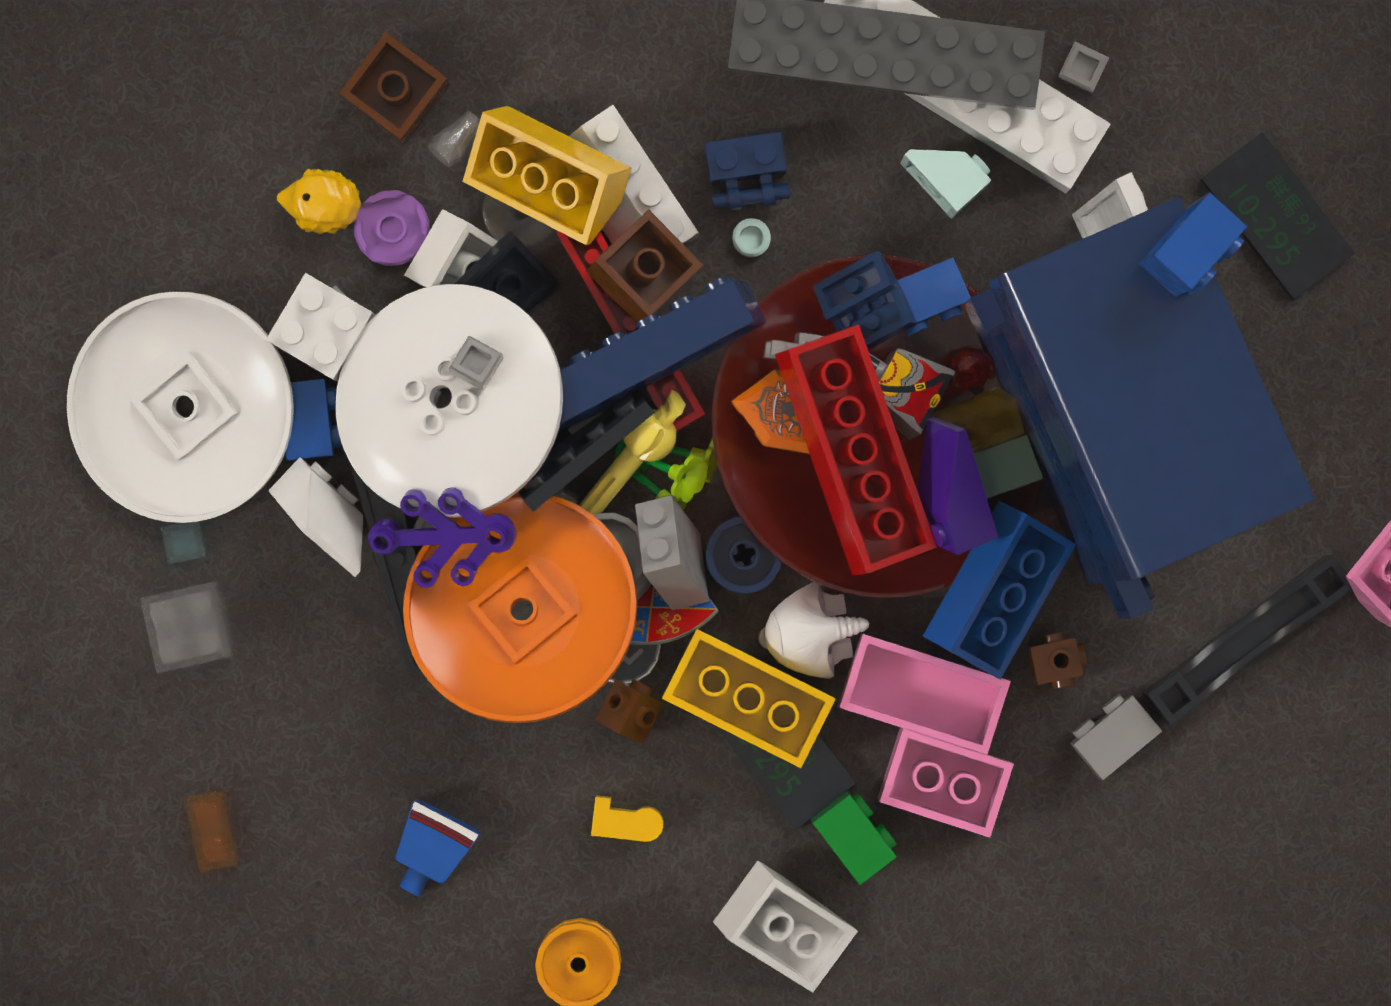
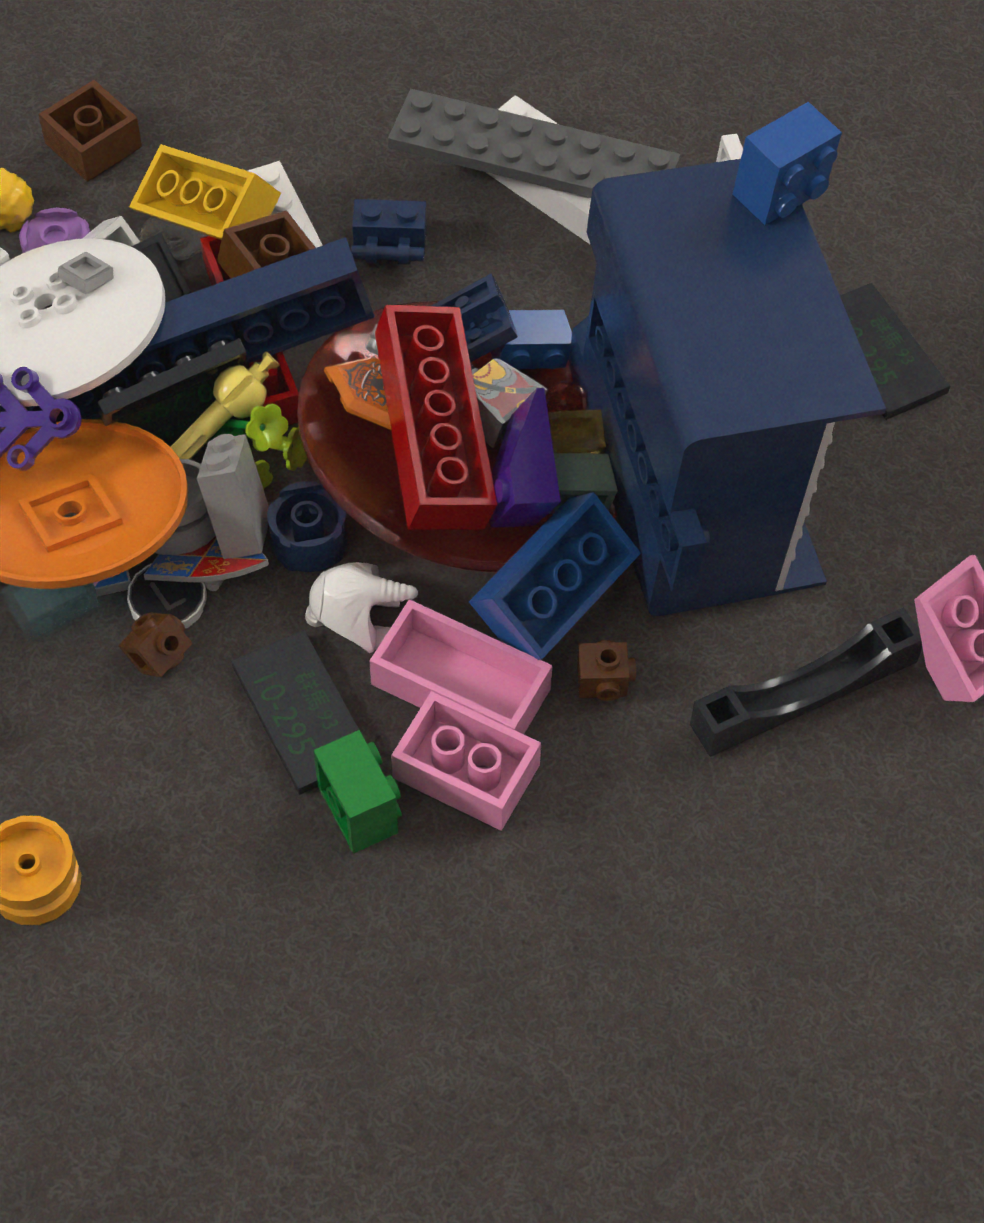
camera: 10 degrees right, 30 degrees down
(454, 140) = (126, 180): clear cone -> none
(637, 825) = (121, 751): yellow leg -> none
(748, 698) = (278, 642): yellow brick -> none
(751, 237) = (382, 292): light aqua tile -> none
(784, 927) = (265, 880): white slope -> none
(948, 176) = (564, 257): light aqua slope -> none
(1115, 735) = (654, 753): light grey brick -> none

